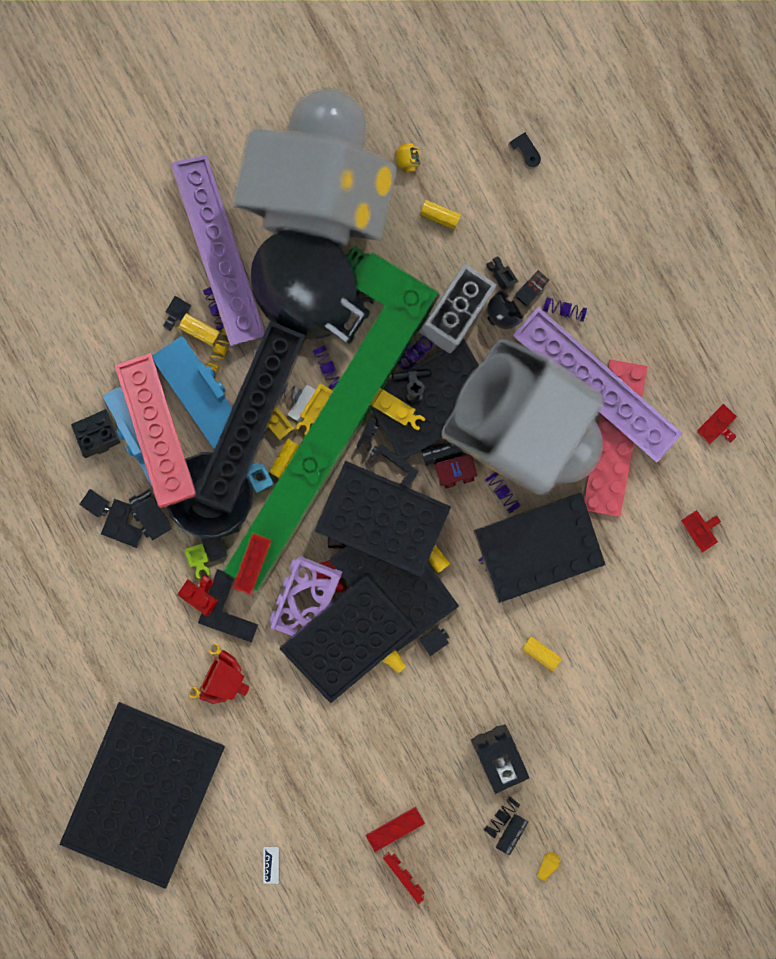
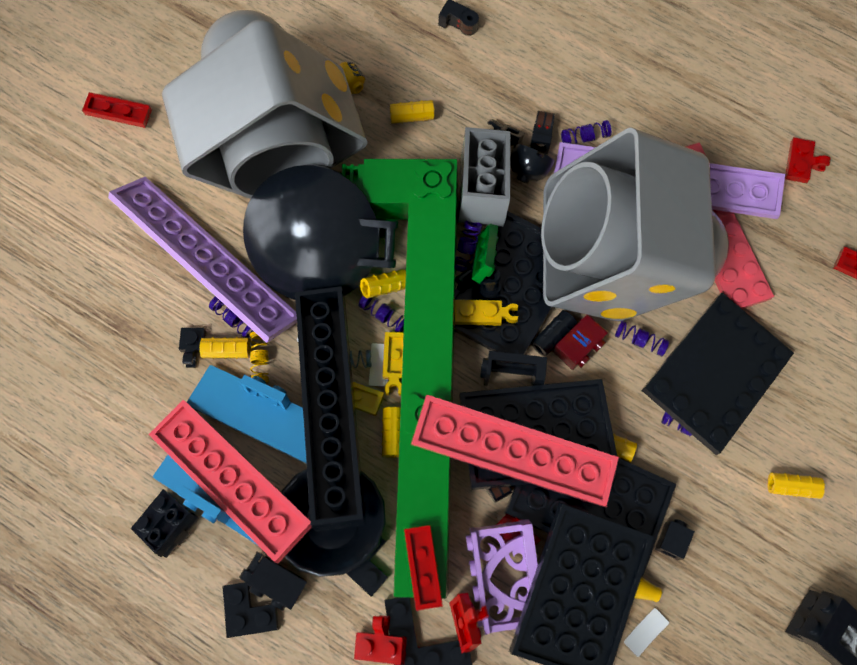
camera: 30 degrees left, 15 degrees down
(95, 503) = (202, 604): black brick -> none
(197, 557) = (354, 599): lime plate -> none
(212, 82) = (117, 110): none -> red plate
(260, 485) = (385, 470): medium azure brick -> none
(263, 611) = (465, 621): none -> red plate
(338, 347) = (383, 283): none -> yellow axle
(355, 523) = (515, 450): none -> coral plate
(371, 428) = (465, 350): black plate -> none
(379, 687) = (646, 632): none -> white sticker
(422, 369) = (485, 253): none -> green plate

